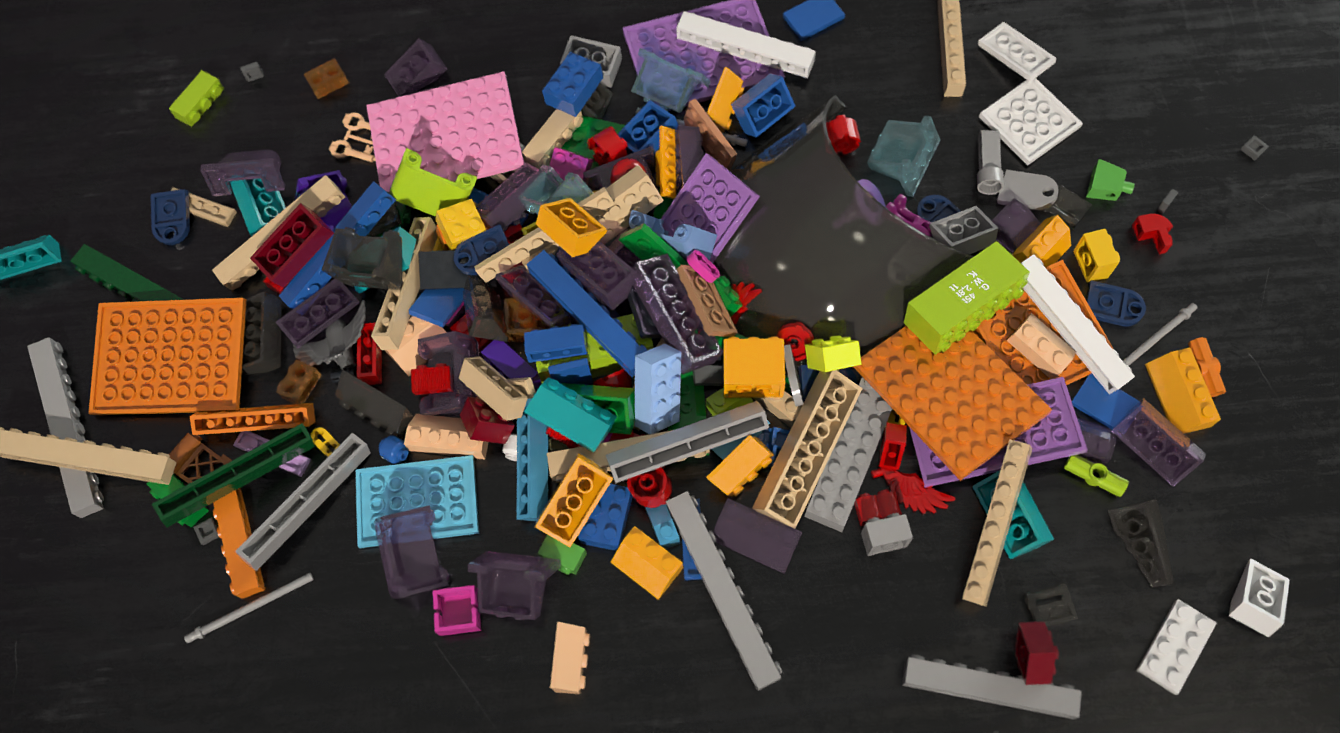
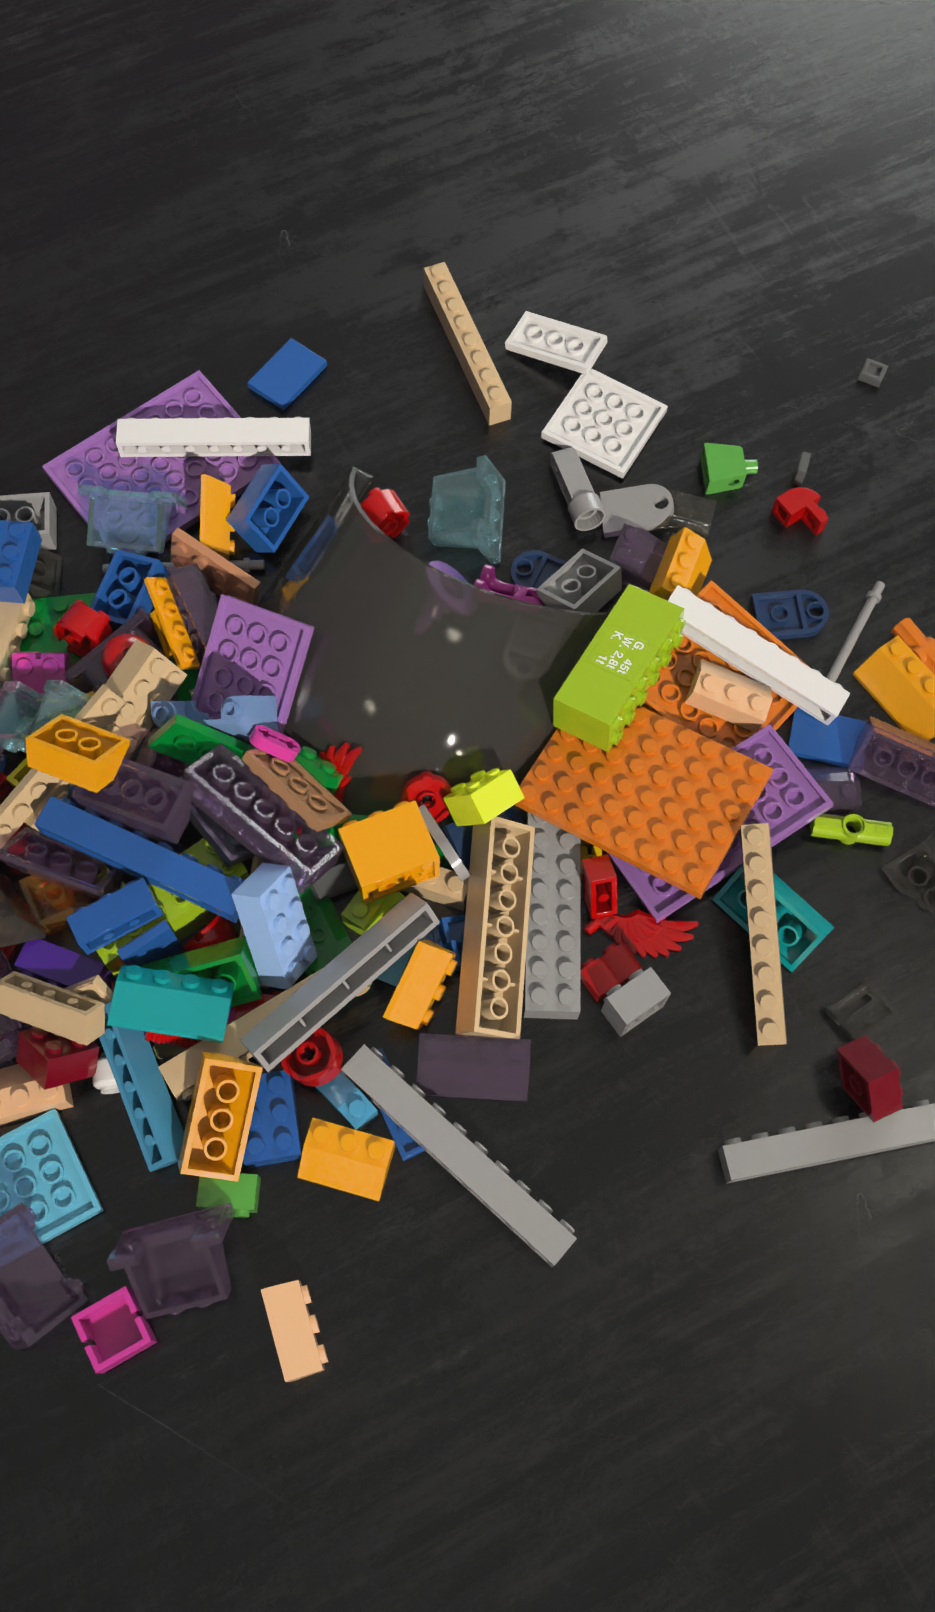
camera: 30 degrees left, 0 degrees up
(1096, 255) = (748, 561): yellow brick -> none

